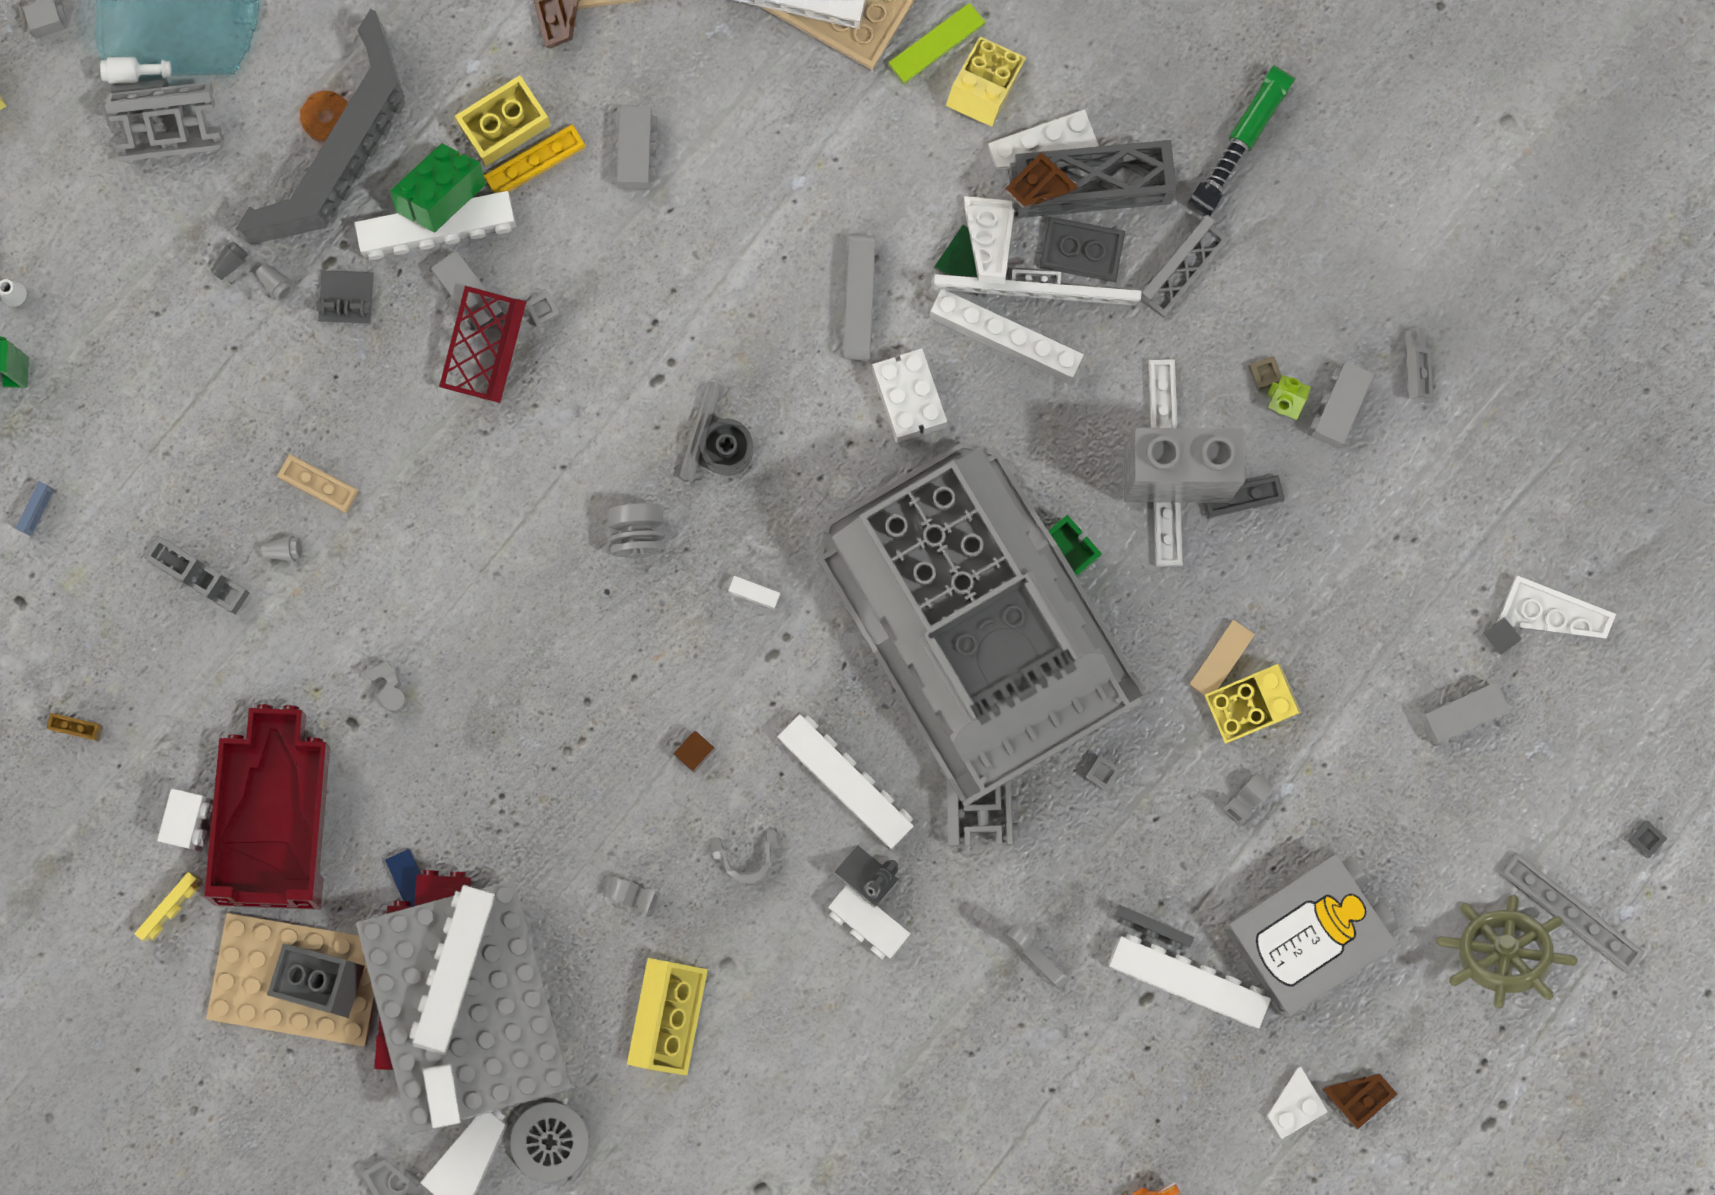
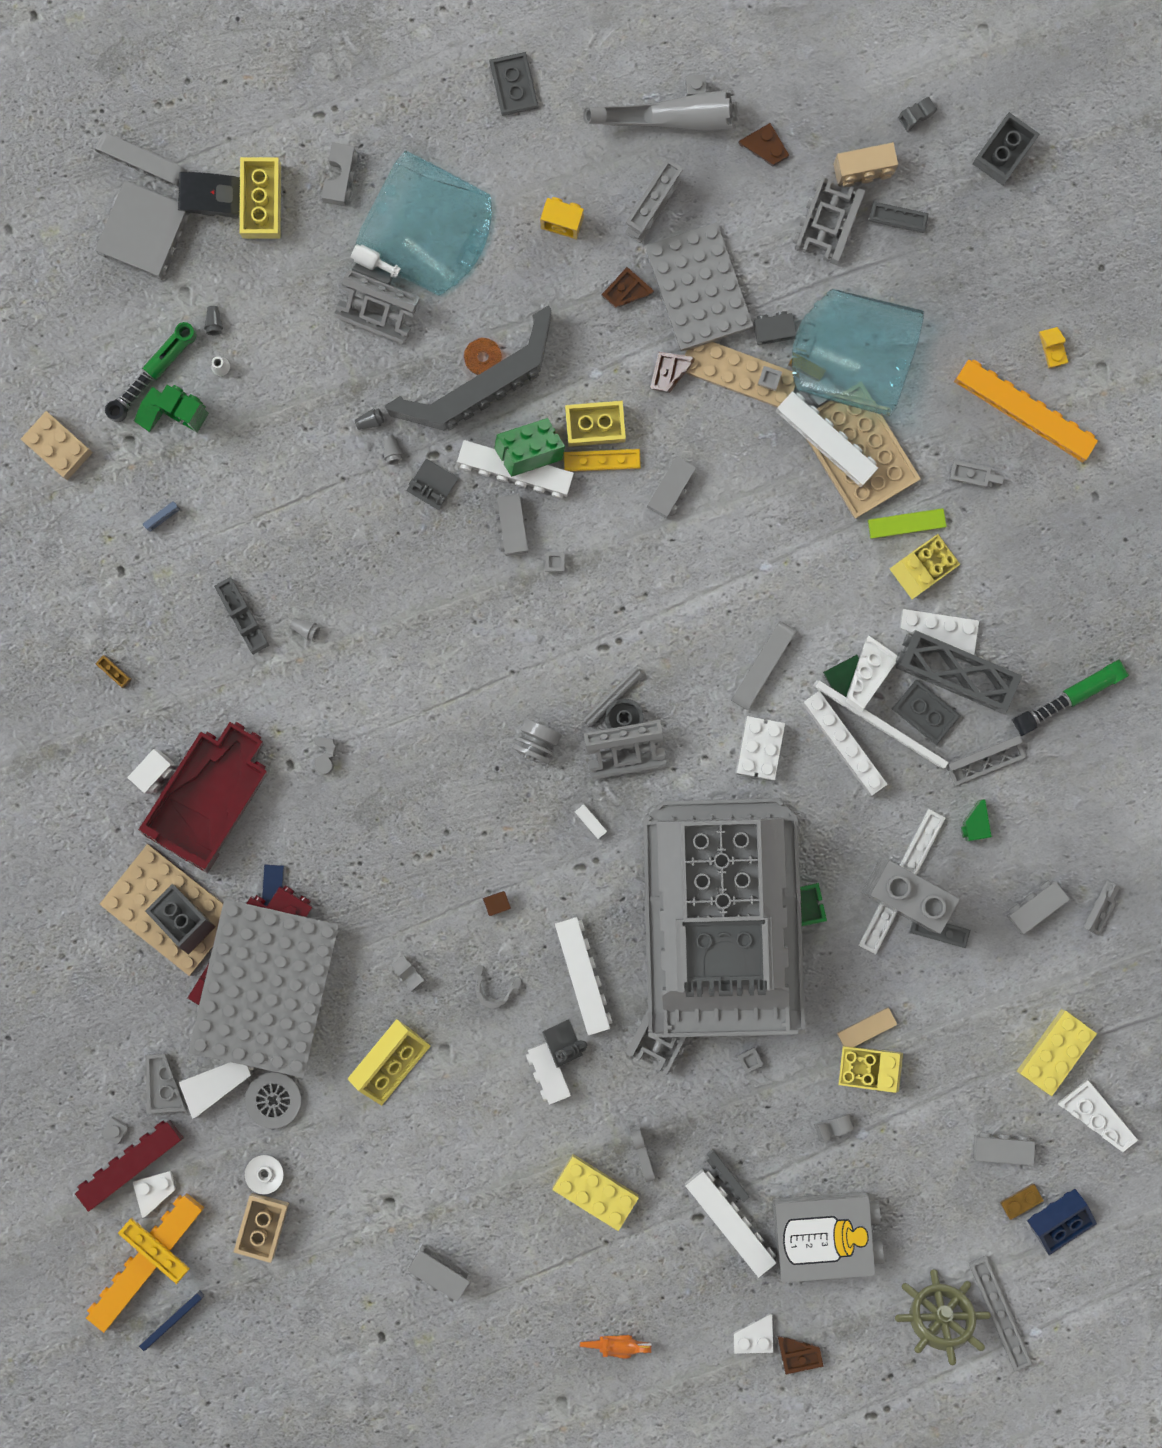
camera: 30 degrees right, 5 degrees up
(169, 907) = (112, 821): light yellow plate -> none
(318, 483) = (350, 597): tan tile -> none
(441, 1095) = (220, 1040): white slope -> none
(453, 969) = (269, 964): white brick -> none
(505, 349) = (515, 577): dark red fence -> none
(737, 469) = (623, 738): none -> light grey fence
(1005, 1035) = (595, 1192): none -> light yellow brick
(1036, 276) = (885, 715): white piece -> none
(1039, 183) = (920, 659): reddish brown wing -> none
(1215, 345) = (976, 824): none -> green slope
(1265, 372) = (1000, 858): dark tan tile -> none
(1288, 396) = (1005, 883): lime brick -> none
(1461, 563) = (1056, 1052): none -> light yellow brick
(1502, 636) = (1056, 1113): dark grey tile -> none
(1520, 764) = (1021, 1201): none -> pearl gold plate
(1582, 760) = (1062, 1221): none -> dark blue slope
(1647, 839) = (1075, 1293): dark grey tile -> none

